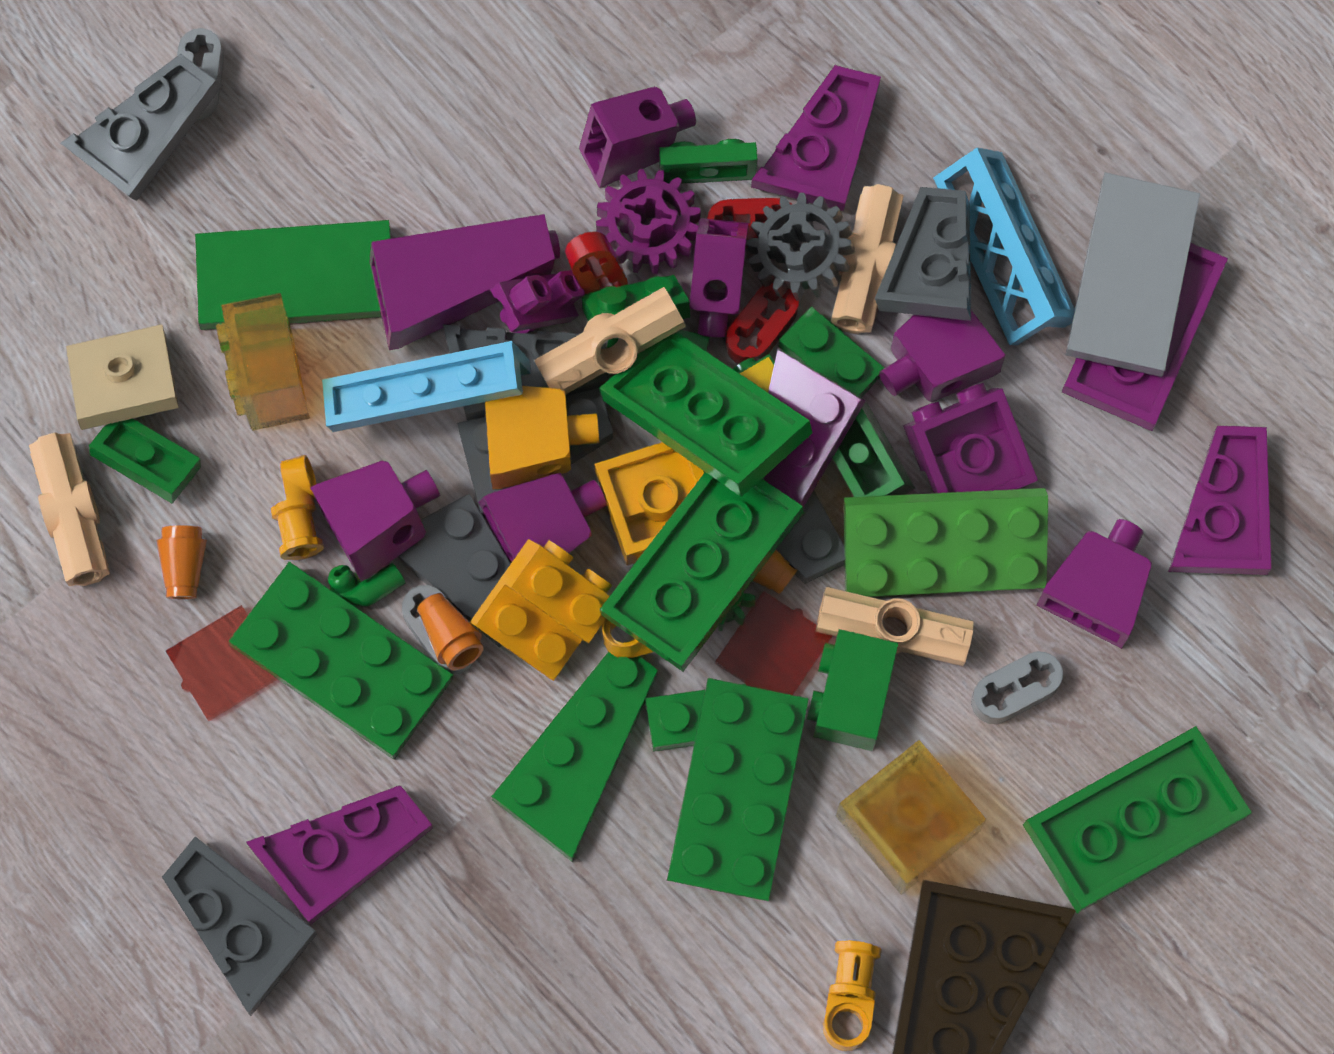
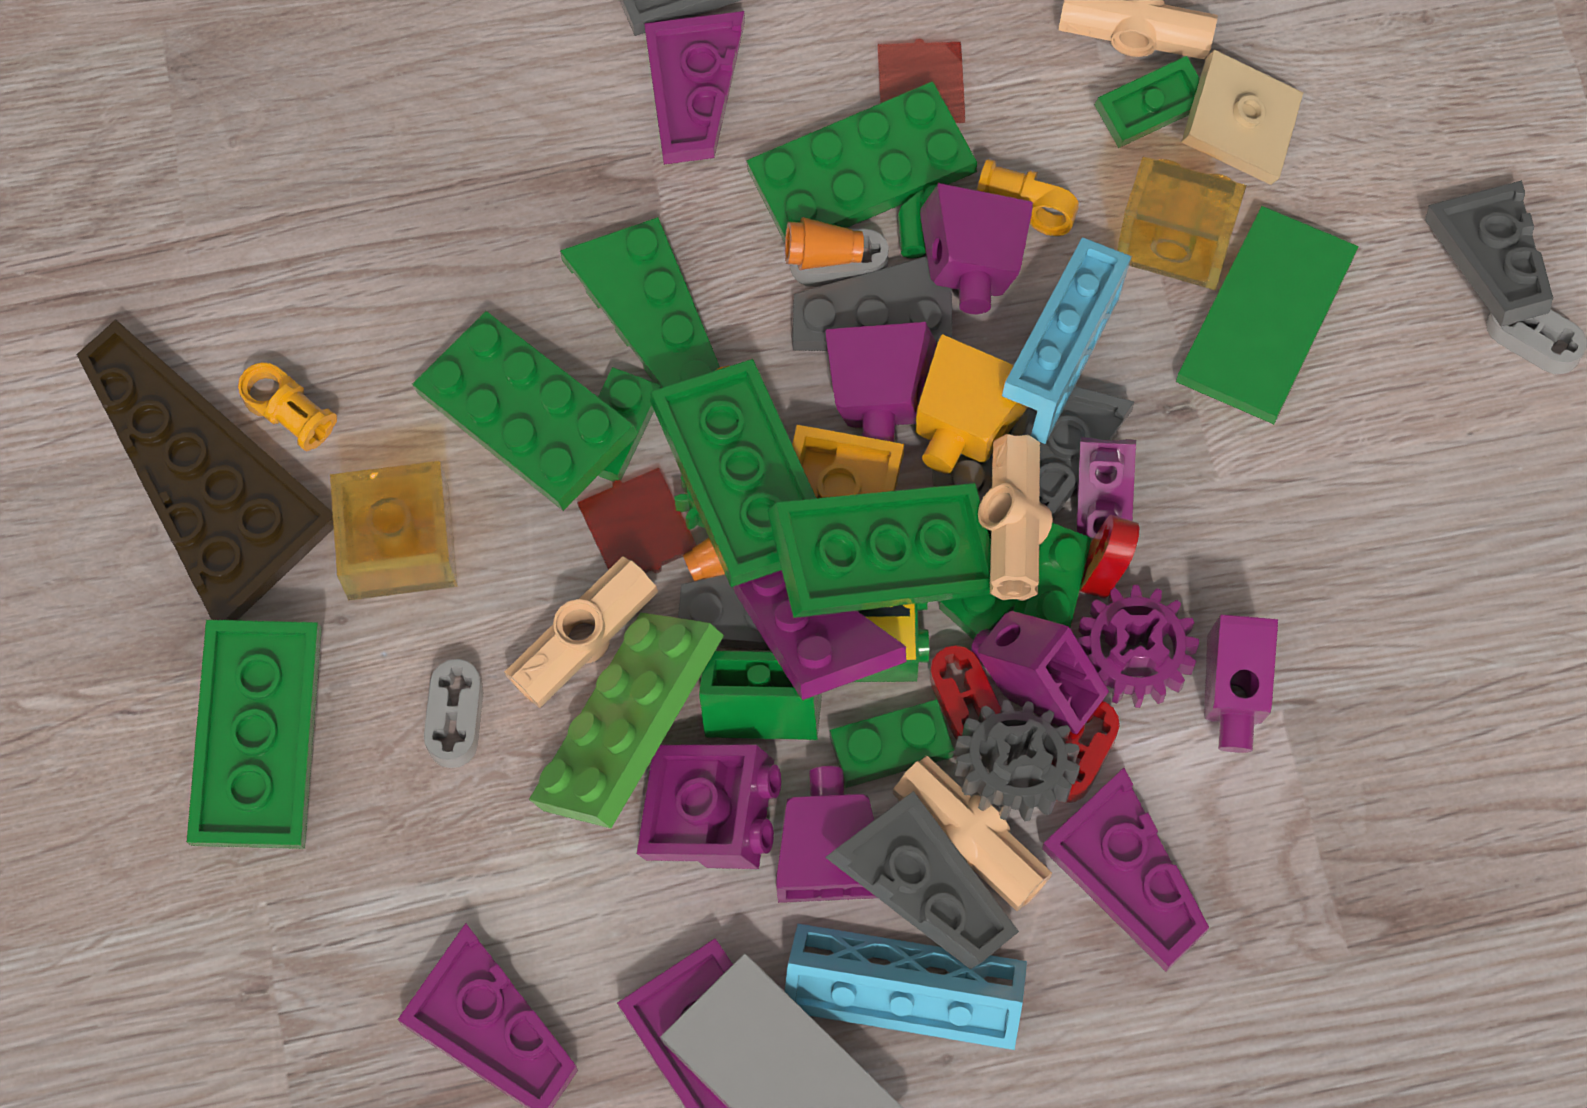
camera: 125 degrees right, 5 degrees down
(181, 560) = (1036, 86): orange cone -> none
(450, 272) = (1180, 424): magenta slope -> none
(543, 607) = (794, 330): light orange plate -> none
(709, 163) = (1181, 719): green plate -> none
(854, 689) = (543, 556): green brick -> none
(1101, 583) = (494, 847): magenta torso -> none

